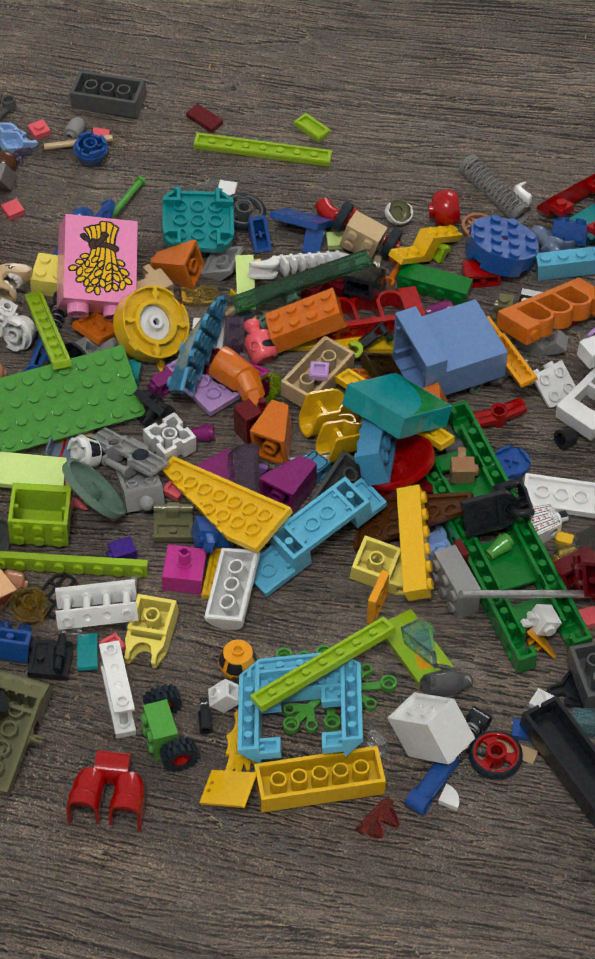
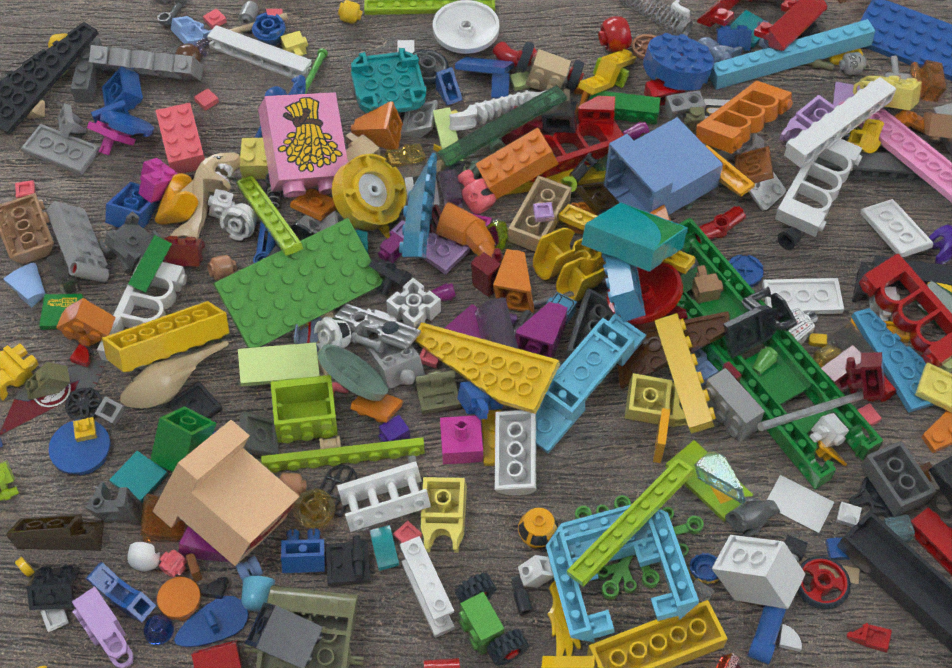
camera: 10 degrees left, 5 degrees up
(59, 550) = (330, 443): none -> tan bush
(75, 171) = (258, 53): none -> white piece
(111, 528) = (380, 410): none -> orange tile
(113, 169) = (294, 43): none -> light yellow brick
(177, 143) = (349, 12): none -> yellow head
(293, 176) = (466, 26): none -> white dish
(381, 723) = (701, 568): none -> blue hair
(398, 212) = (572, 45): olive hair -> none
(403, 281) = (598, 110): none -> red slope
(492, 287) = (679, 104): none -> light grey brick
(499, 684) = (800, 503): none -> white sticker
(529, 810) = (872, 637): none -> red slope
(549, 360) = (755, 164): none -> dark orange tile

